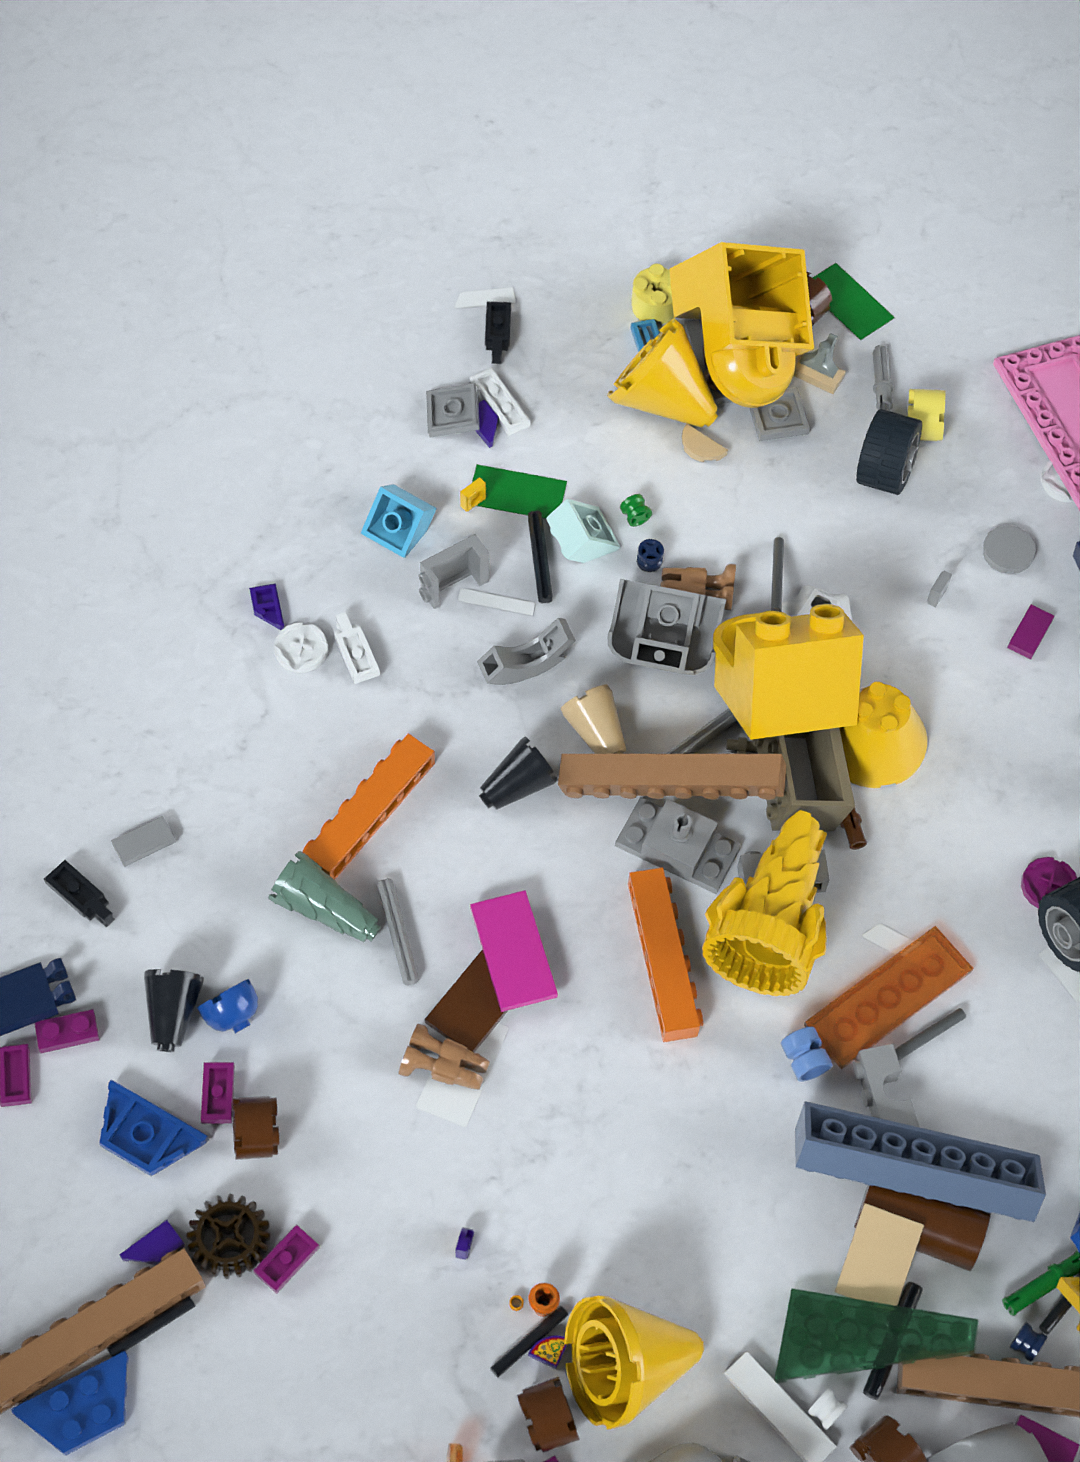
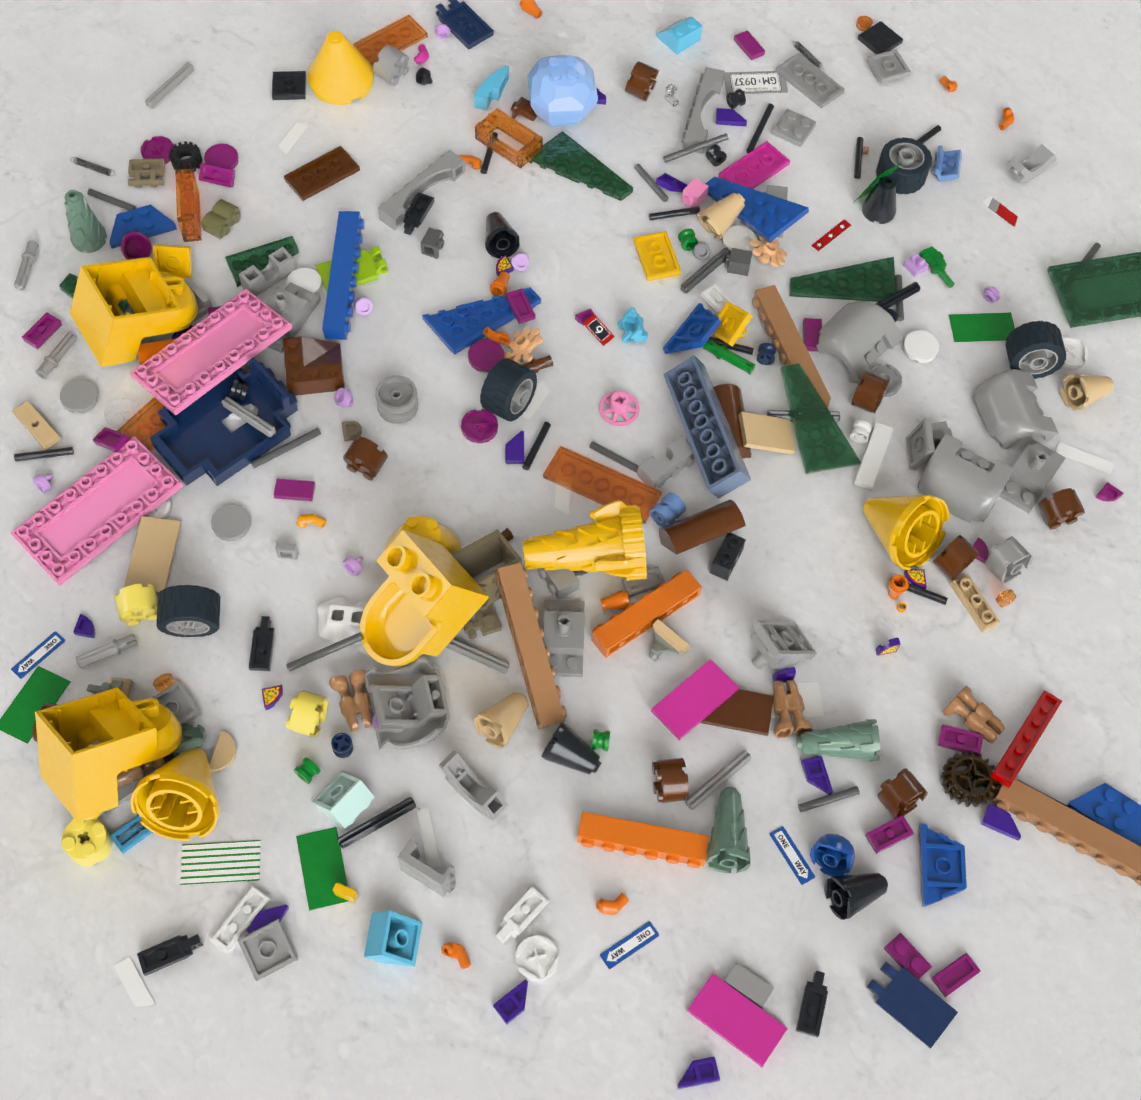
camera: 115 degrees left, 0 degrees up
(85, 747) = (699, 1073): none -> dark purple tile
(114, 810) = (737, 1020): none -> dark pink tile
(238, 1346) = (1026, 739): none -> red tile
(260, 970) = (792, 855): none -> sticker
(261, 745) = (629, 945): none -> sticker
(300, 1302) = (980, 719): none -> medium nougat piece
(303, 1049) = (828, 799): none -> dark grey bar
(310, 744) = (612, 907): none -> orange arm
(343, 1053) = (816, 774): none -> dark purple tile
(350, 576) = (458, 952): none -> orange arm
(359, 1100) = (846, 741): none -> sand green cone
(420, 863) = (671, 780): none -> reddish brown brick
(449, 1414) = (979, 611): none -> tan tile
(490, 1083) = (784, 675): none -> dark purple tile
(516, 819) = (600, 740): none -> green wheel
(531, 1084) = (780, 644): none -> light grey brick
(574, 406) = (220, 862): none -> white sticker
(612, 961) = (667, 641): none -> tan piece
(696, 927) = (616, 601): none -> orange cone
(700, 1097) = (727, 556): none -> black brick
(702, 527) = (307, 713): none -> light yellow brick
(712, 987) = (637, 587): none -> light grey tile
(730, 415) = (191, 738): none -> sand green tile
(748, 512) = (271, 696): none -> tile
(754, 1076) = (701, 527): none -> reddish brown brick
(815, 415) = (163, 682): none -> clear orange tile
(819, 523) = (262, 646): none -> black hinge
(886, 650) = (352, 565): none -> lavender tile
(909, 321) = (37, 655): none -> sticker
(924, 369) = (84, 627): none -> dark purple tile
(979, 632) = (303, 519): none -> light orange arm
(987, 941) = (536, 446): none -> black bar
(992, 912) = (515, 450): none -> dark purple tile
(993, 456) = (153, 552): none -> tan tile
(1013, 1079) = (619, 405): none -> bright pink wheel
(1042, 714) = (364, 457): none -> reddish brown brick

